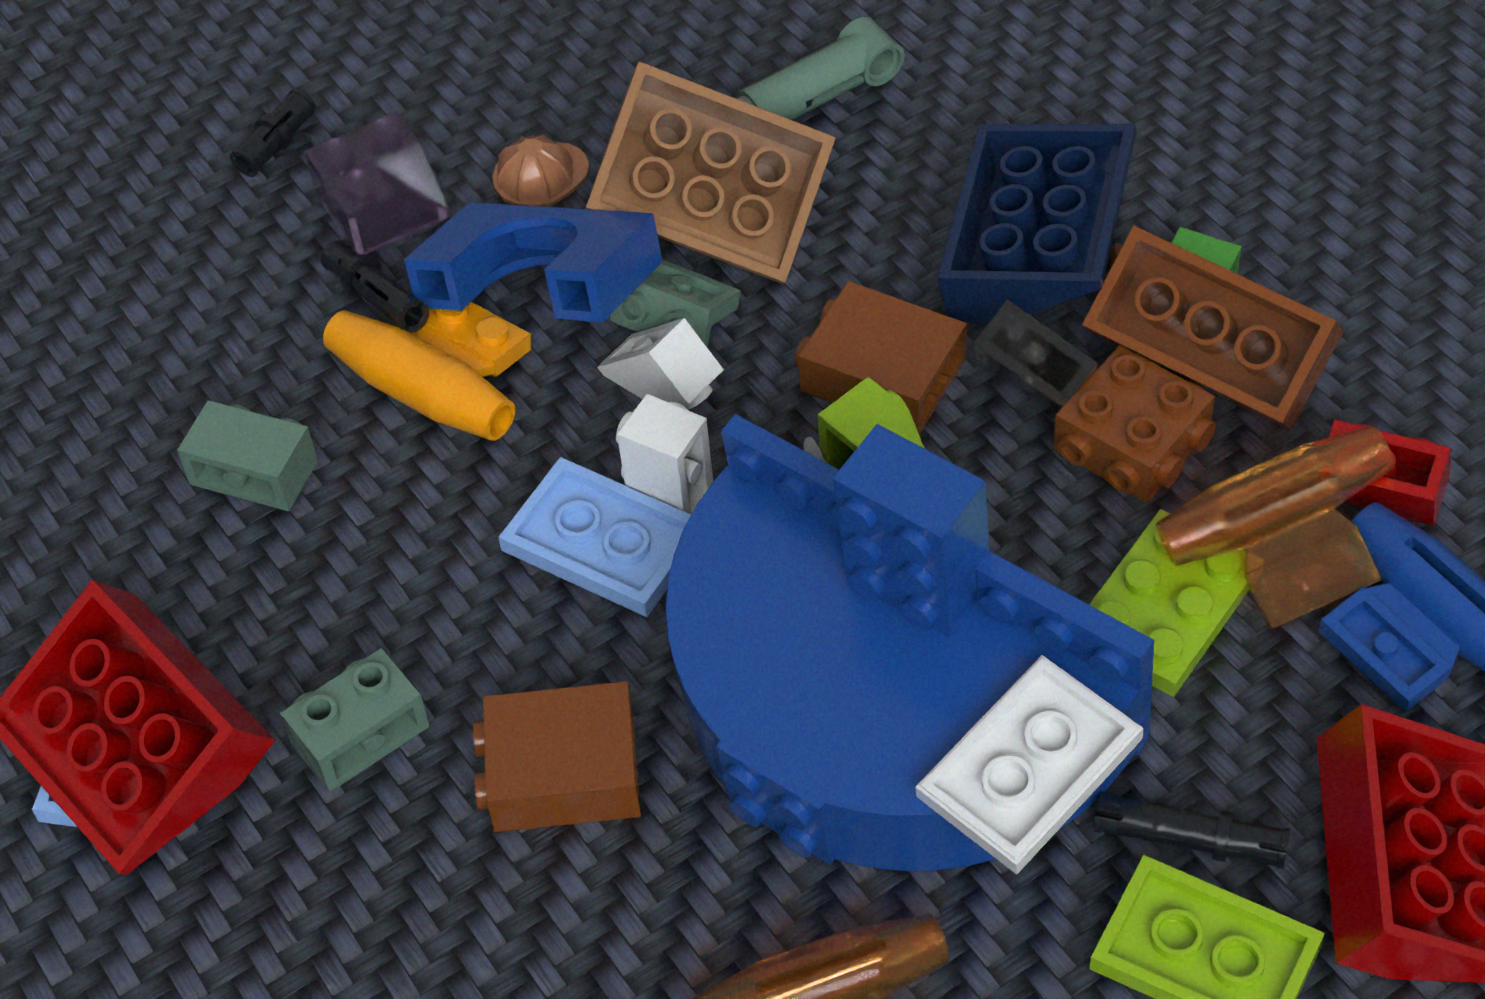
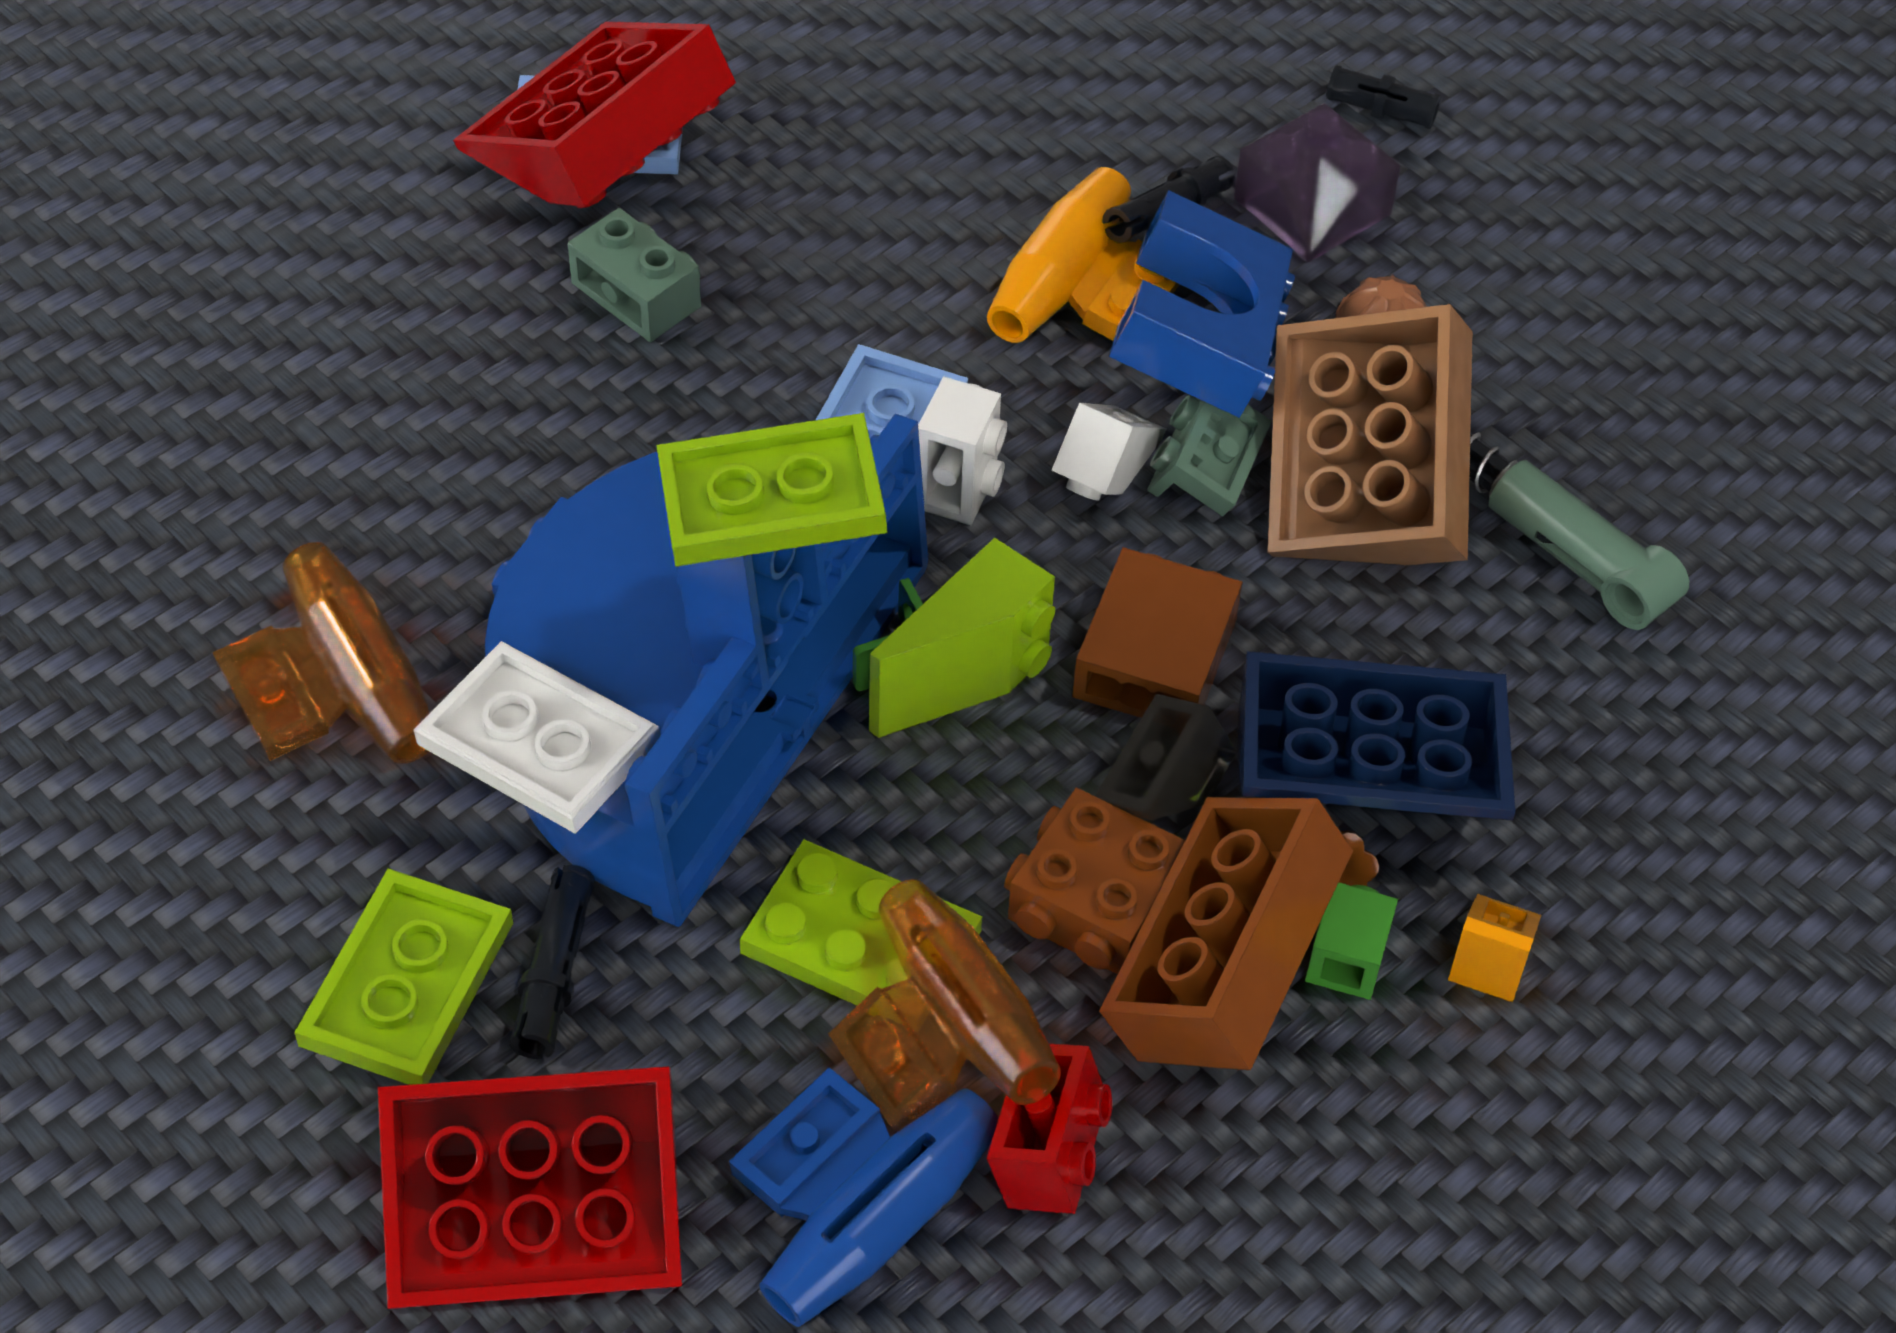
camera: 75 degrees right, 0 degrees up
(248, 455) = (932, 142): sand green brick -> none
(557, 757) = (597, 415): dark orange brick -> none
(930, 442) = (771, 489): none -> lime plate
(1203, 188) = (1494, 947): none -> light orange slope

